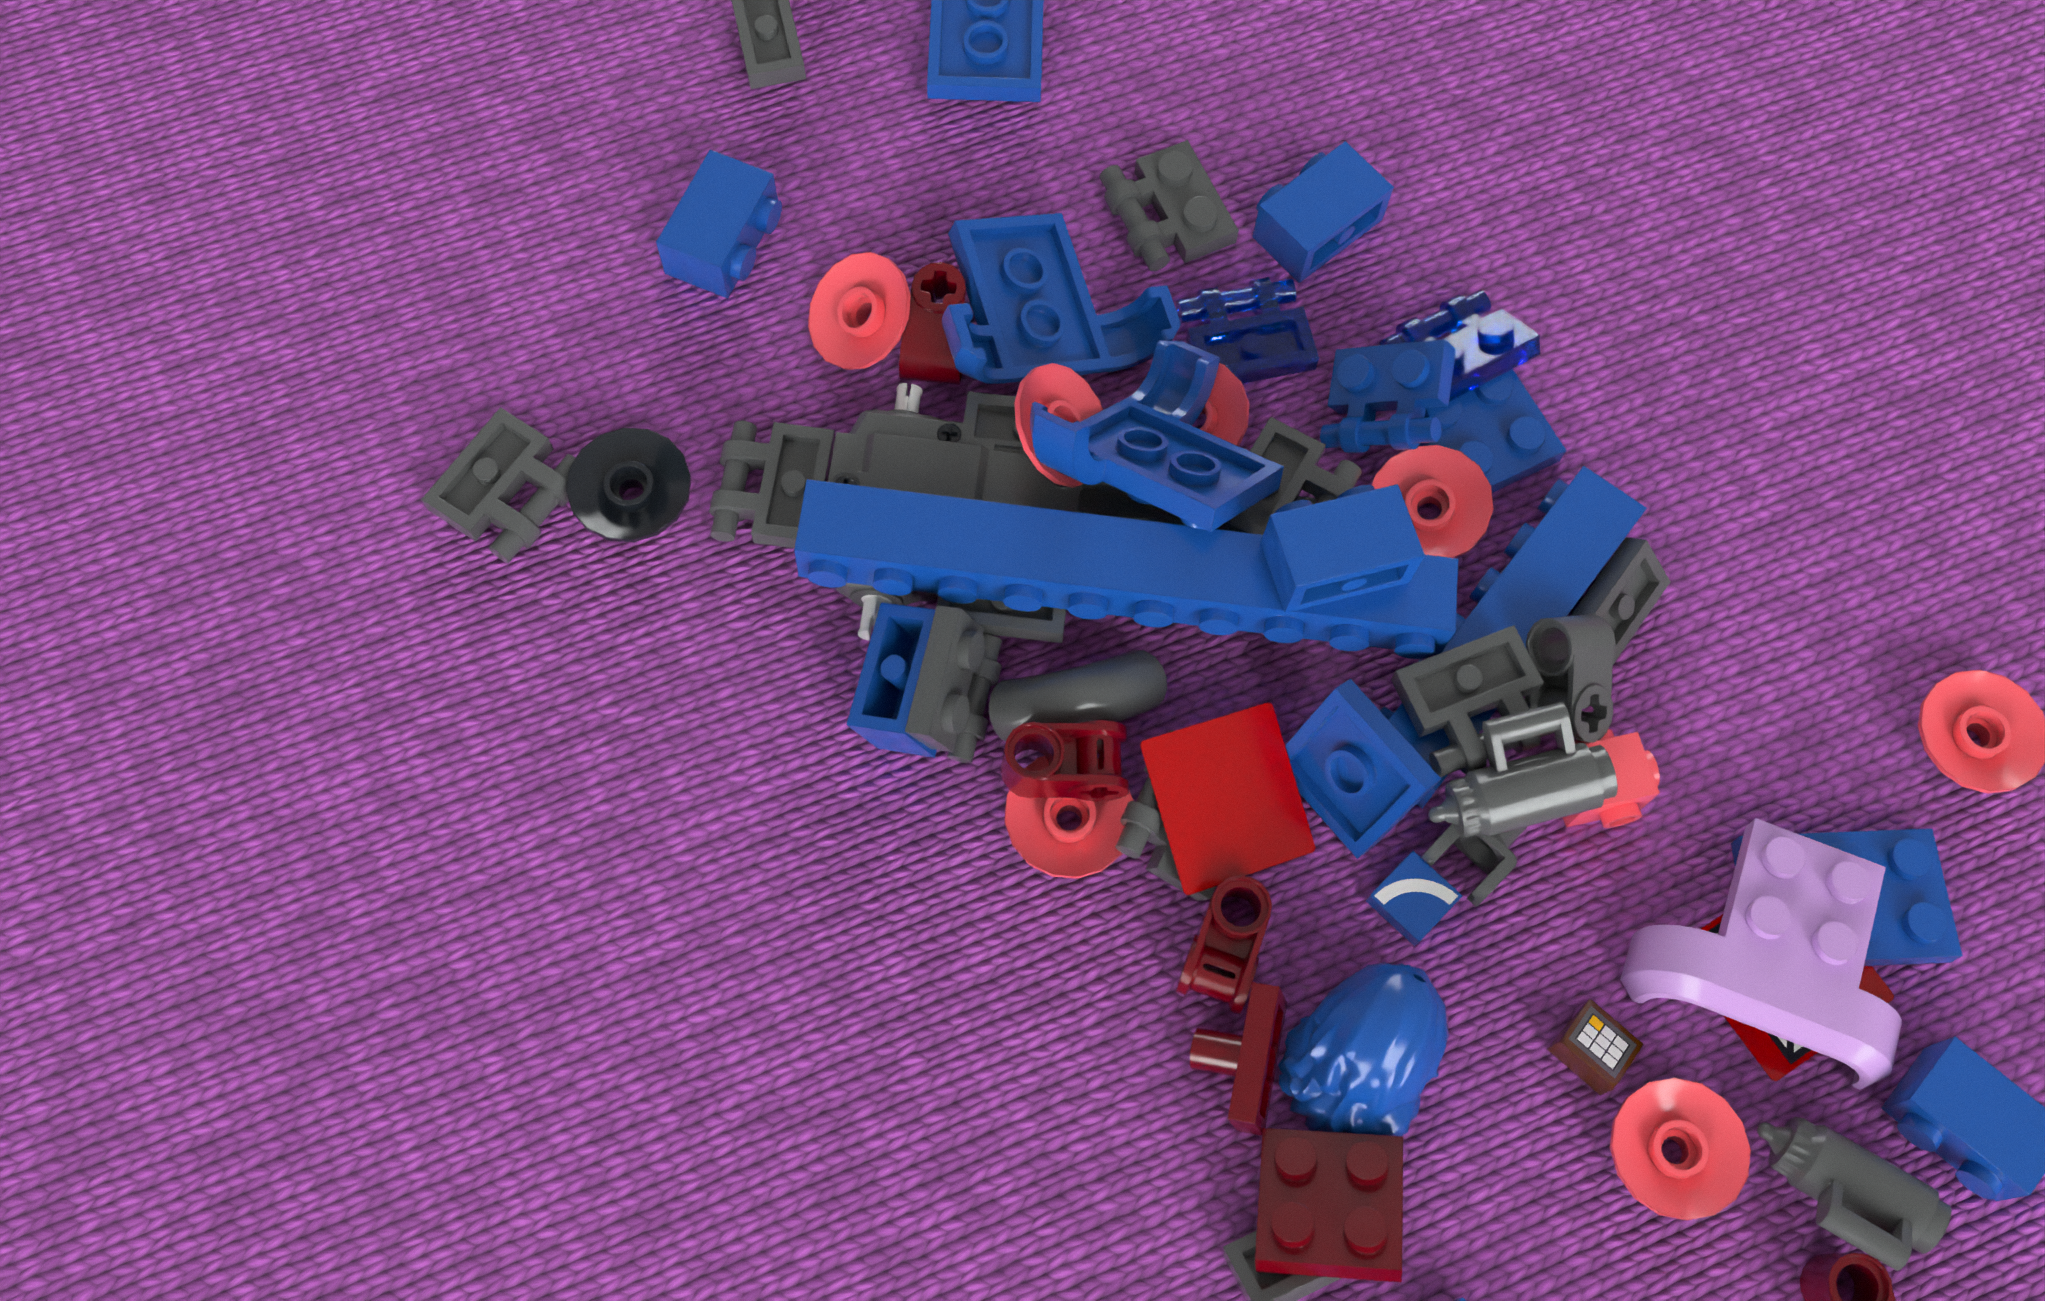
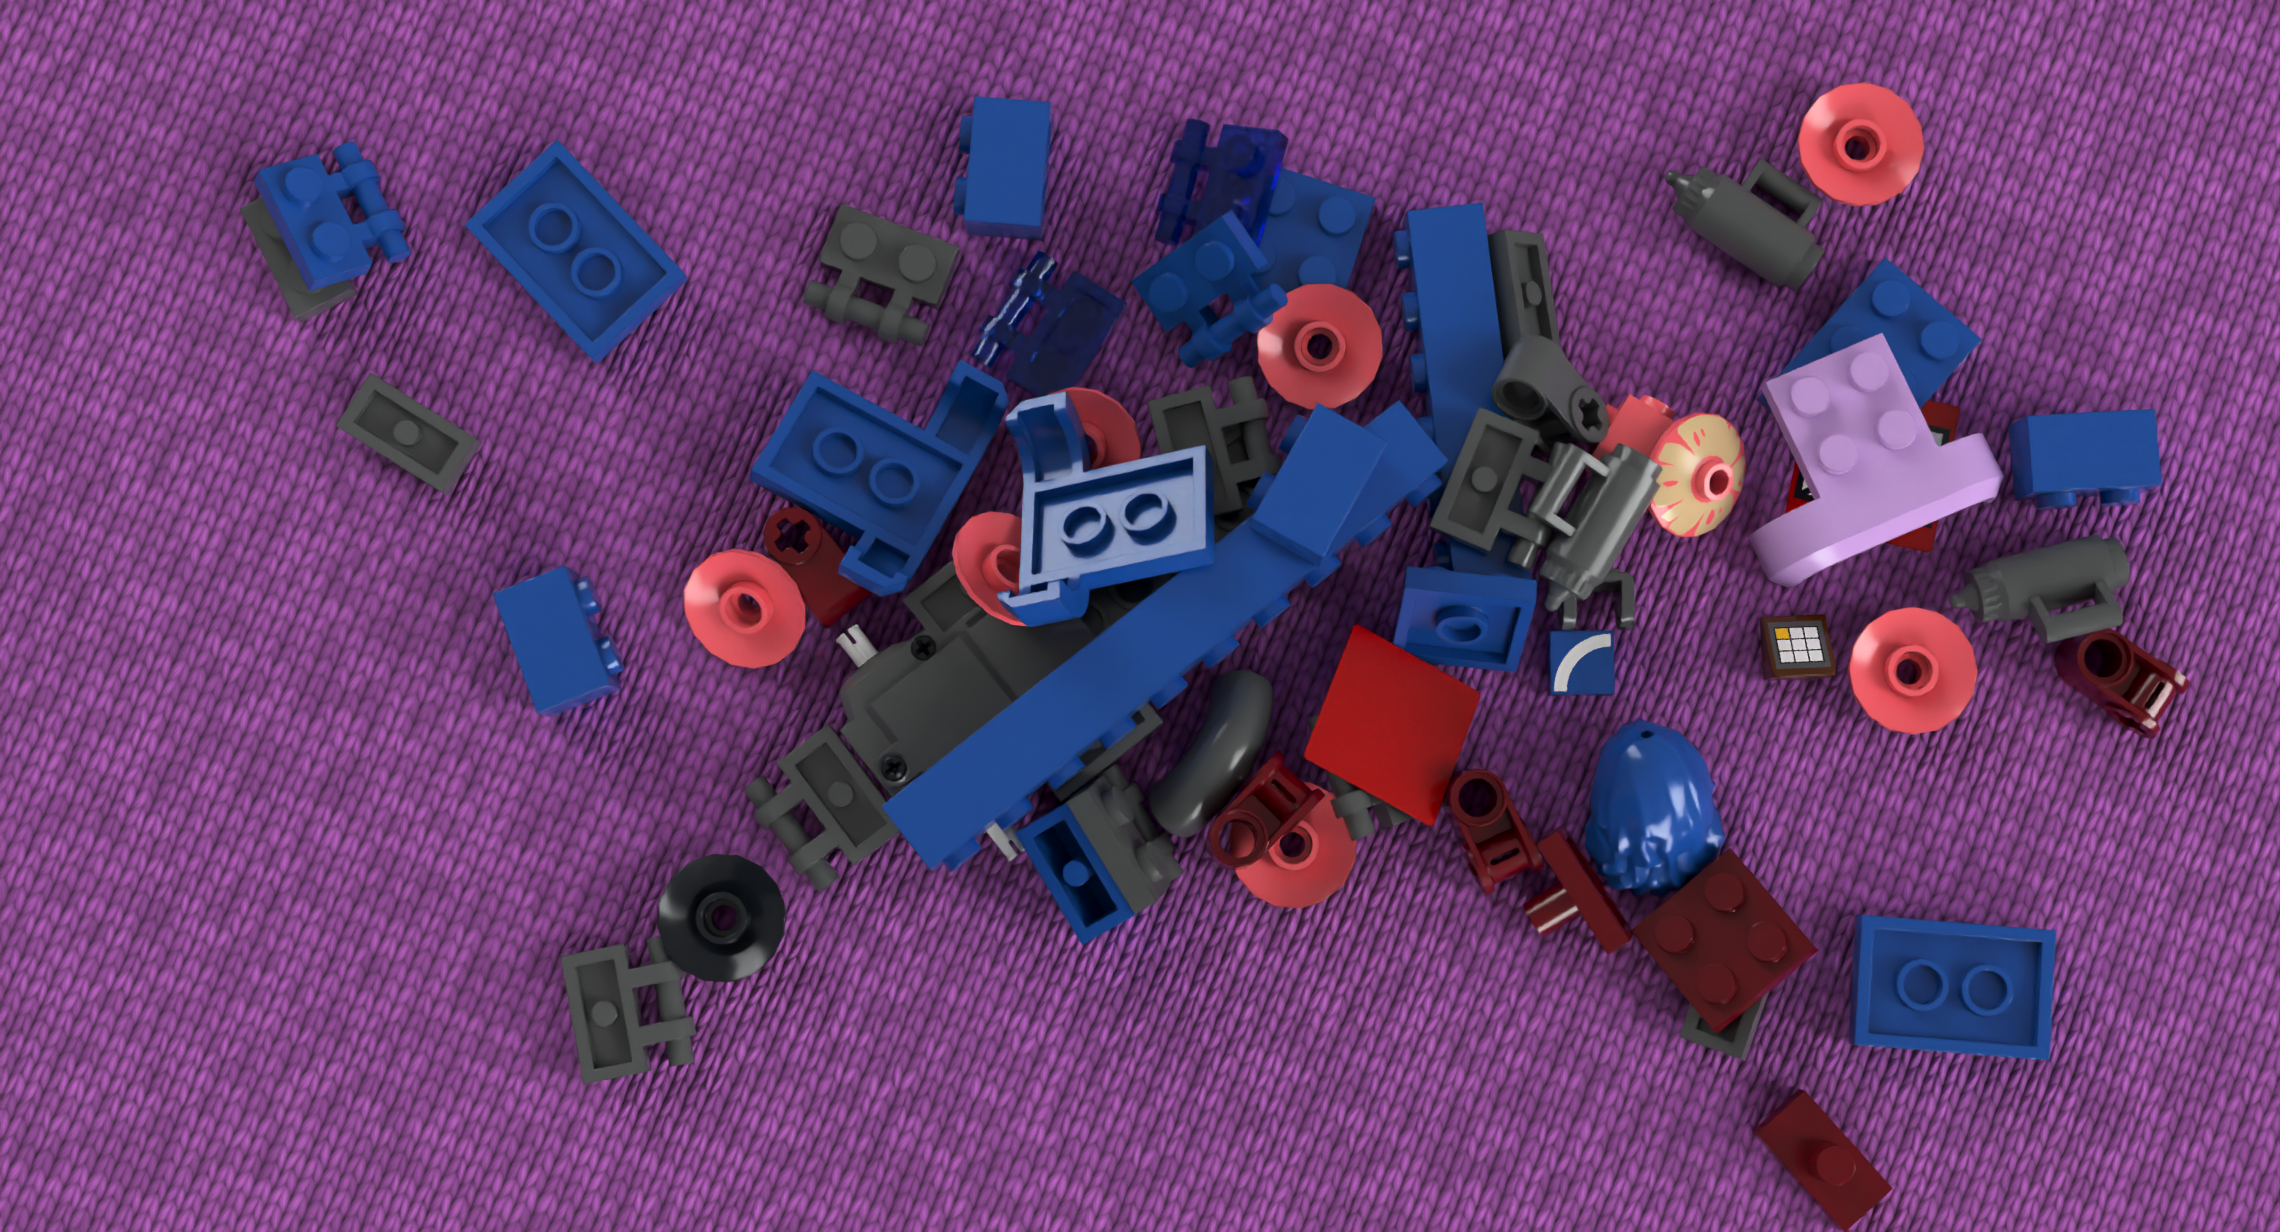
camera: 40 degrees left, 15 degrees up
(1610, 838) = (1699, 476): none -> tan dish
(1840, 712) = (1748, 225): none -> dark grey piece

